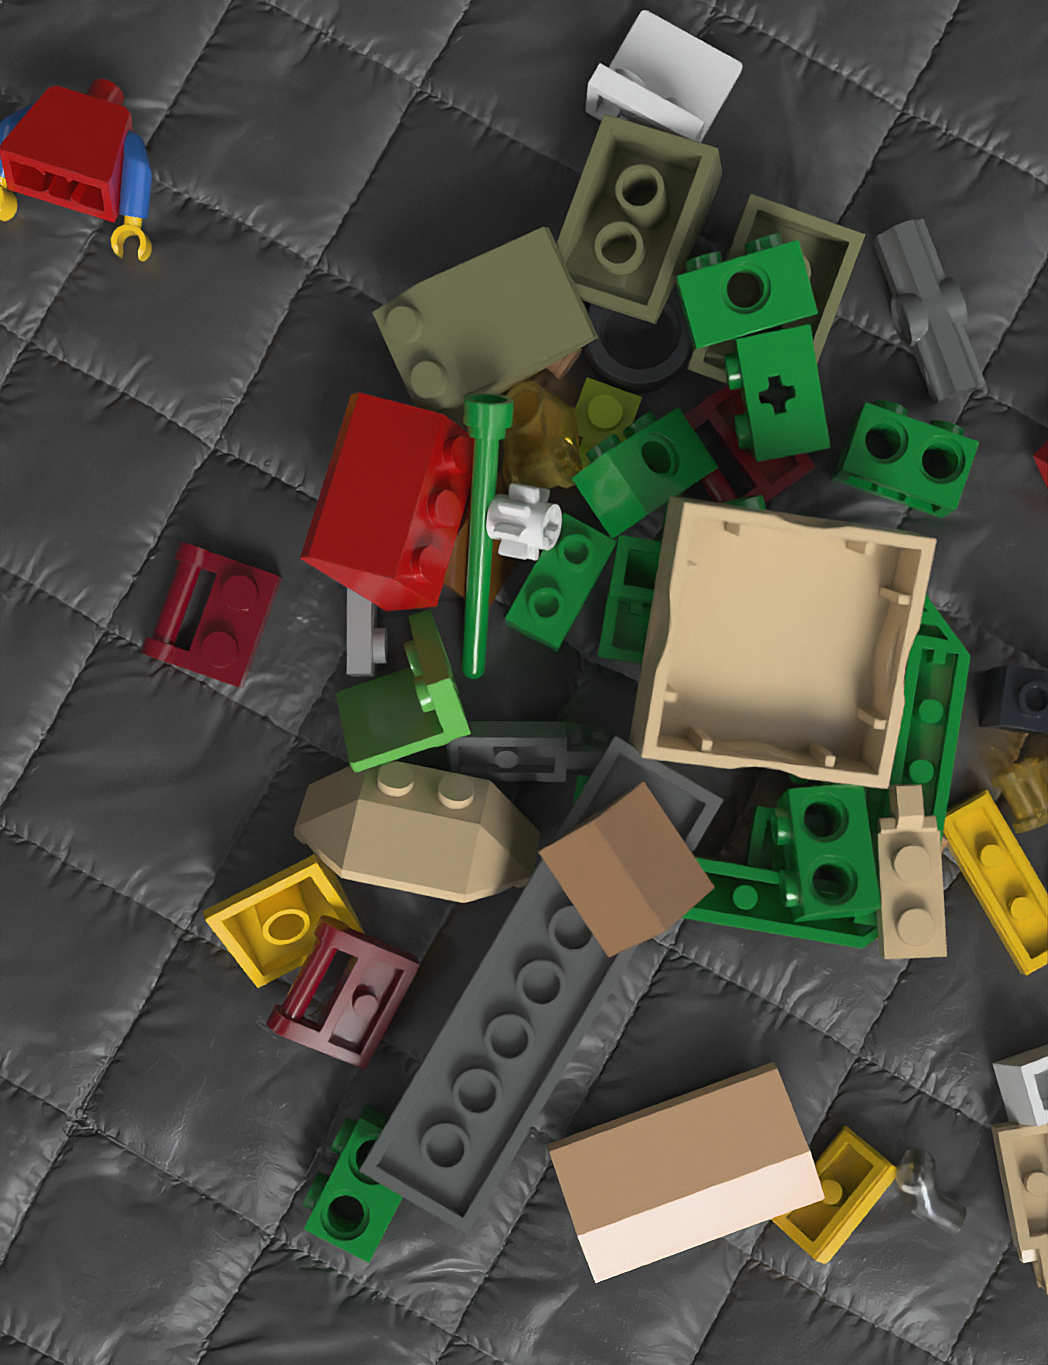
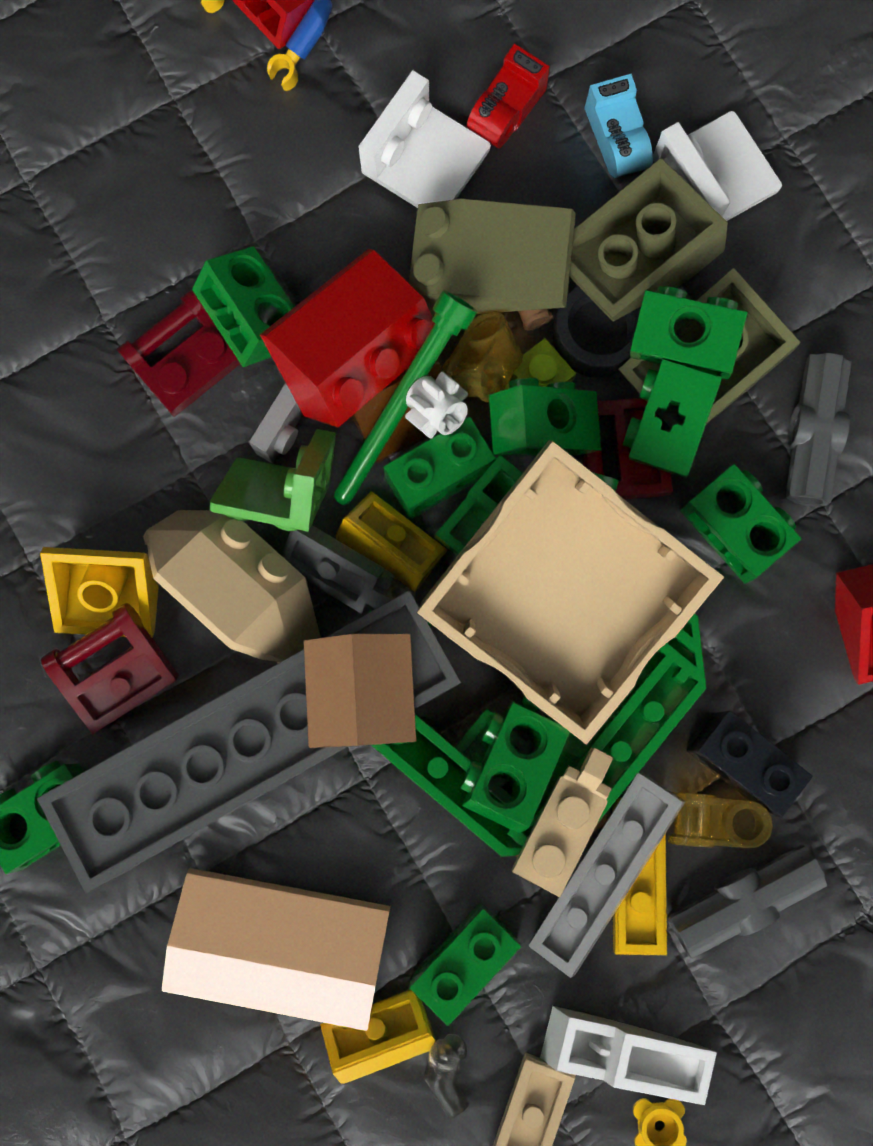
camera: 30 degrees right, 5 degrees down
(246, 525) = (242, 301): none -> green brick
(337, 246) = (419, 148): none -> white bracket
(394, 132) = (509, 97): none -> red leg
(532, 98) = (619, 126): none -> medium azure leg
(551, 688) = (390, 541): none -> yellow slope
(882, 1075) = (464, 963): none -> green brick
(974, 900) = (606, 874): none -> light grey plate

